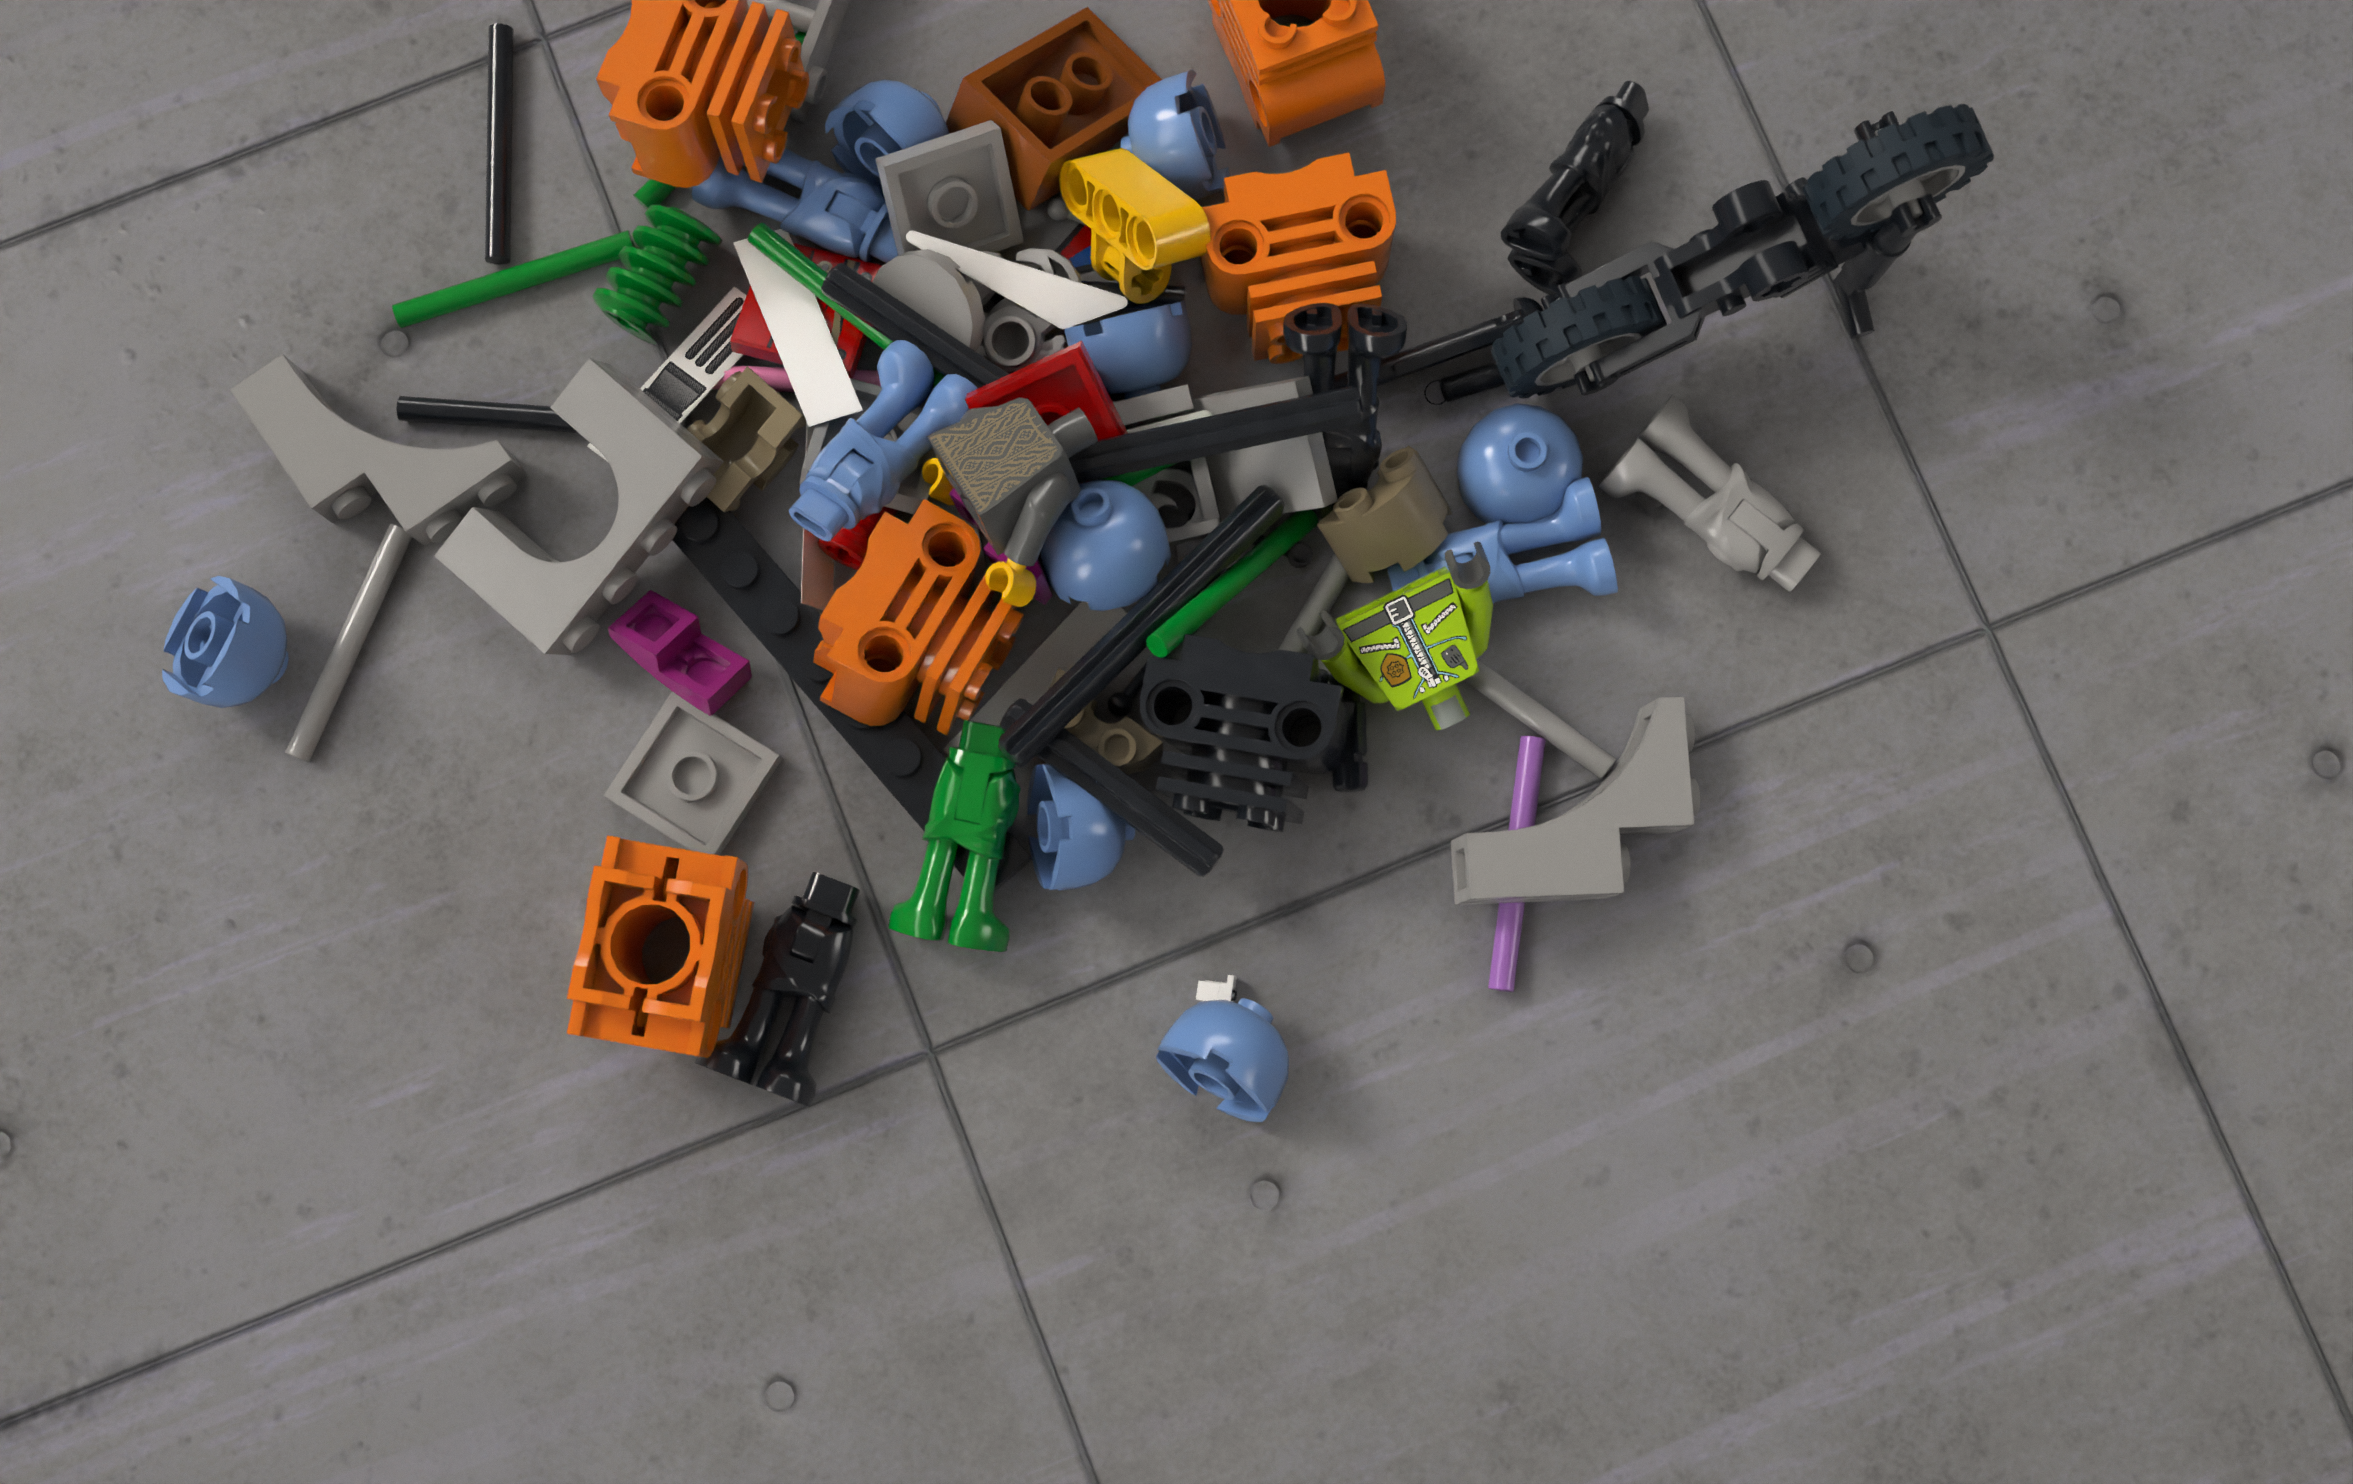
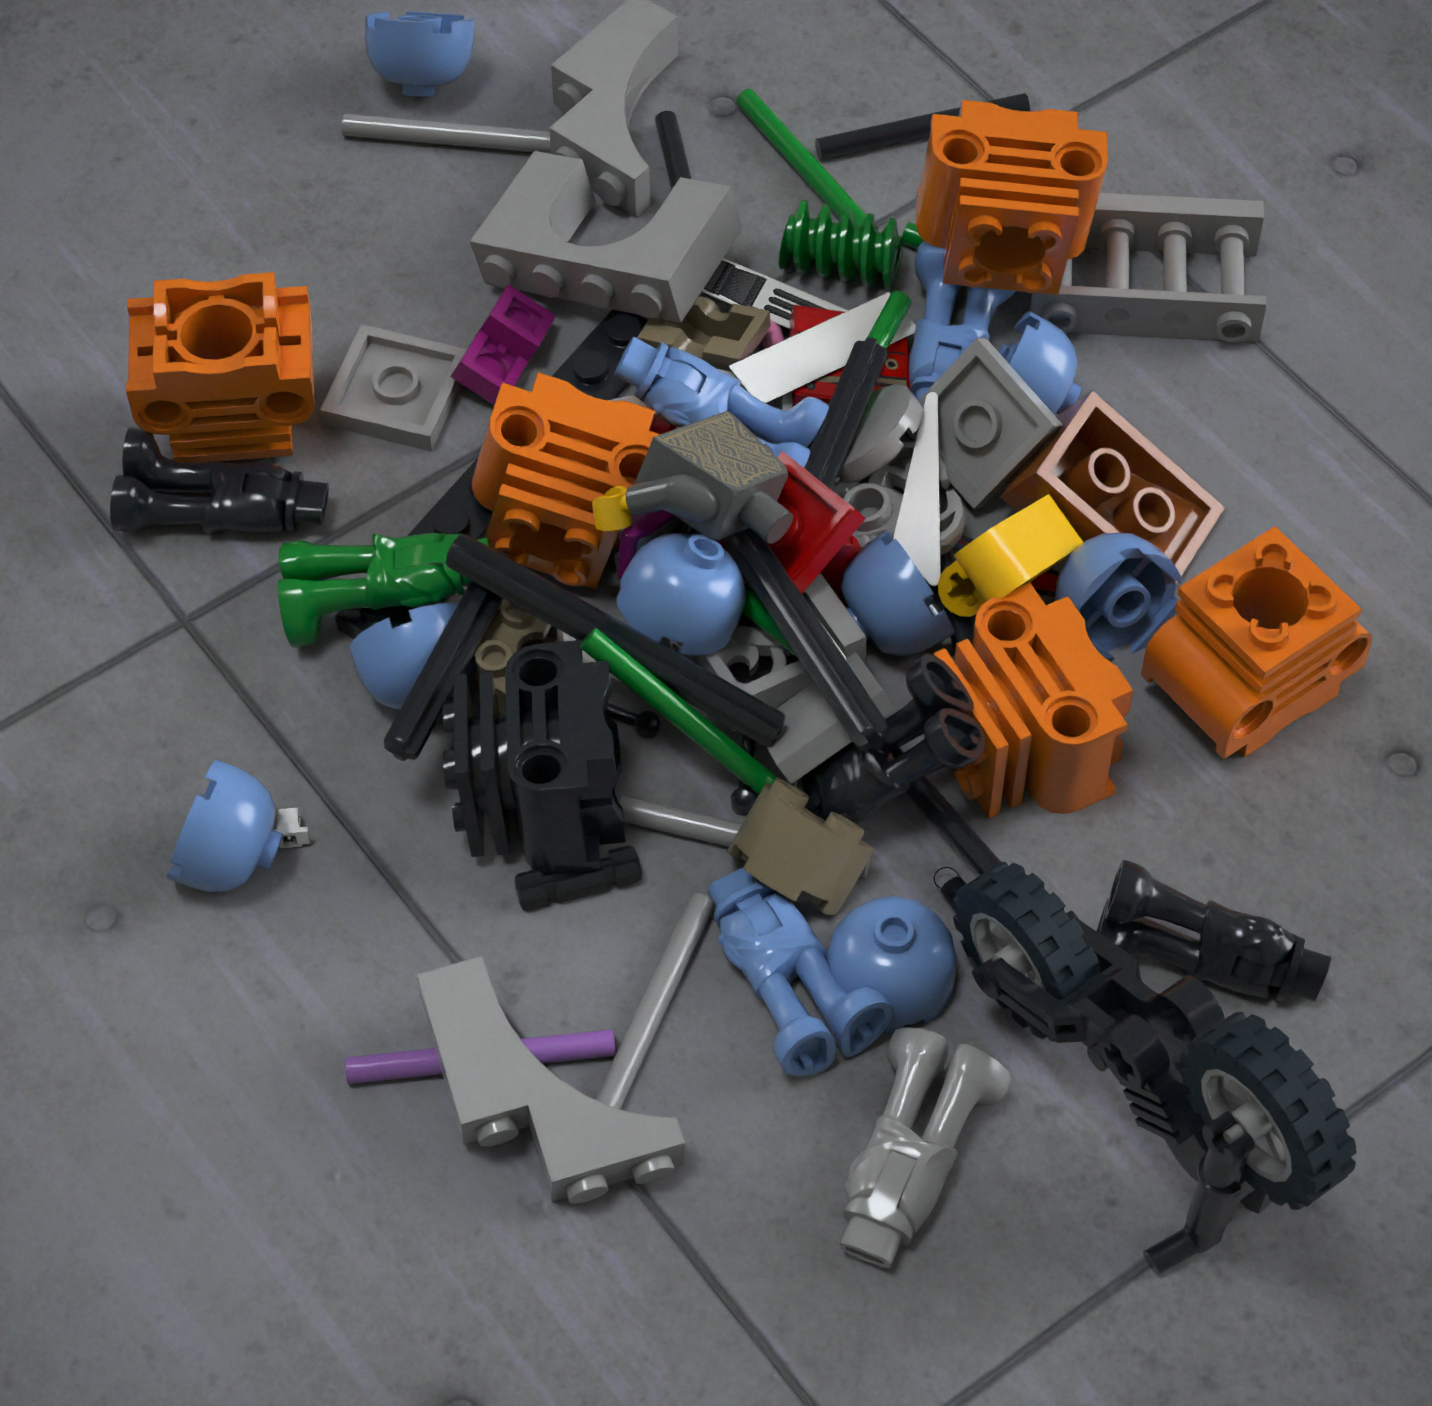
camera: 70 degrees right, 25 degrees down
(1414, 640) = (669, 879): torso -> none

